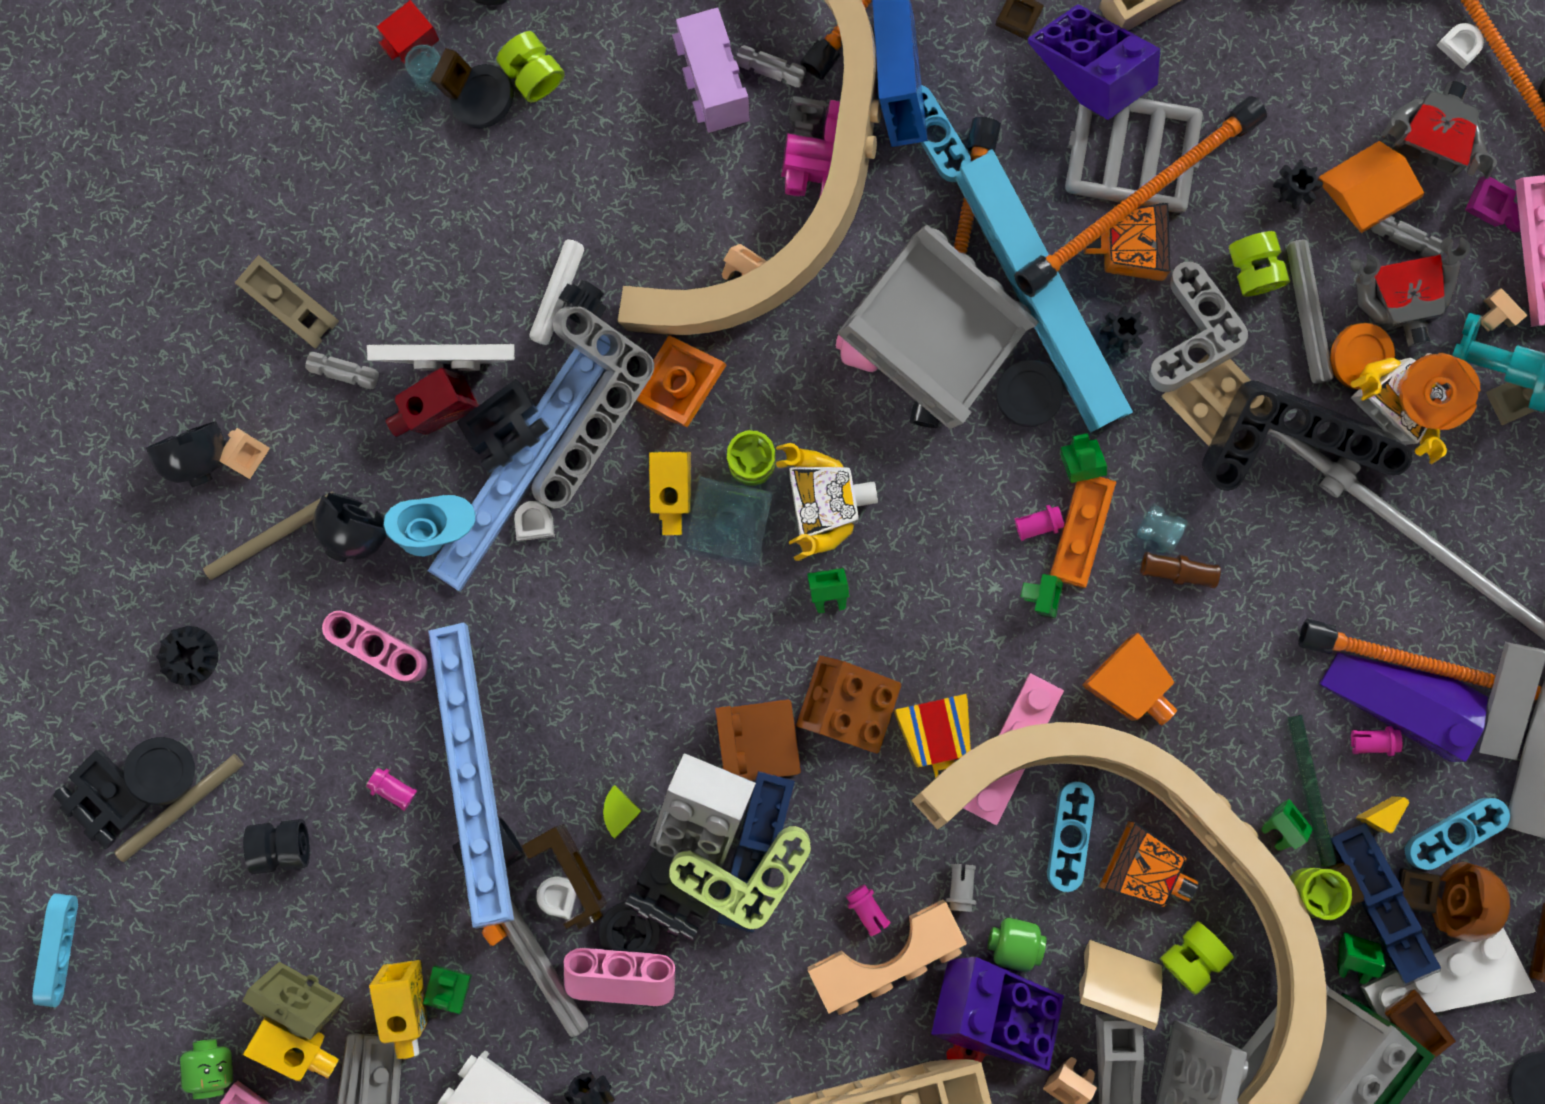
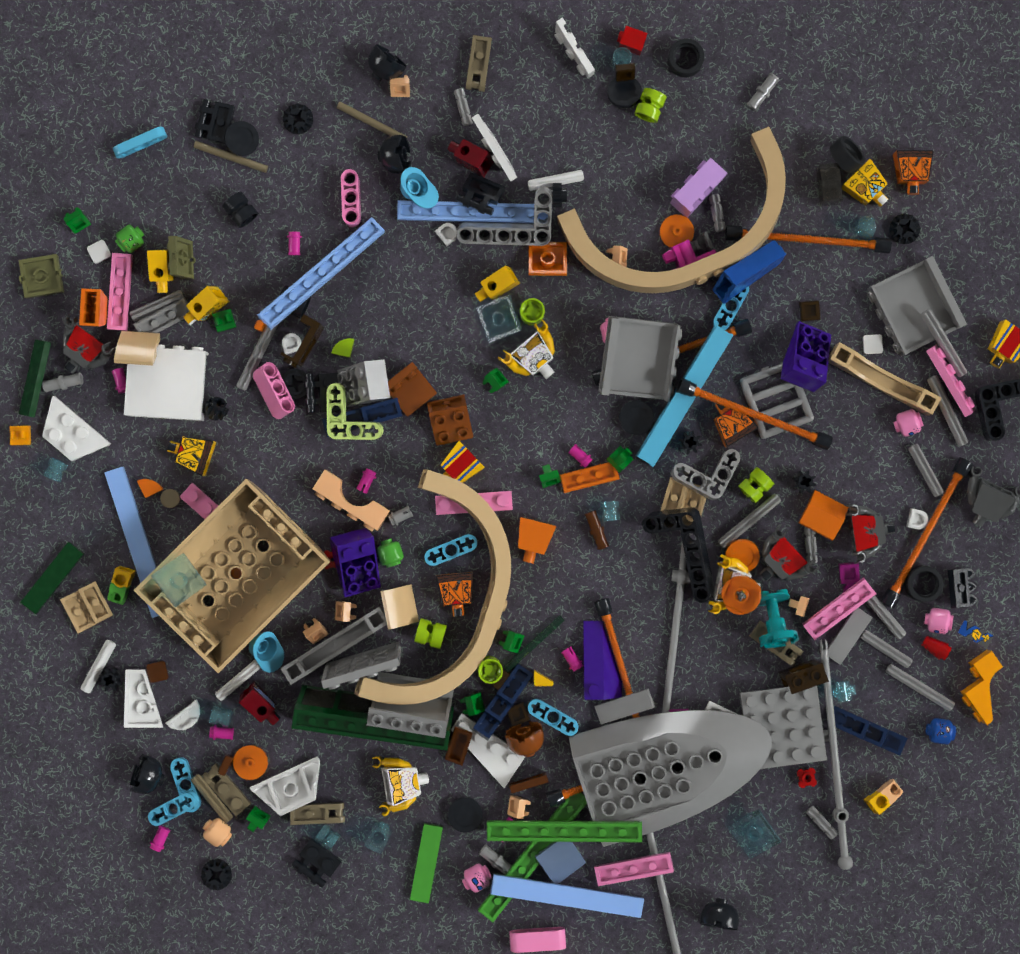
camera: 55 degrees right, 5 degrees up
(345, 133) = (584, 65): none -> white wing
(758, 148) = (676, 230): none -> orange piece

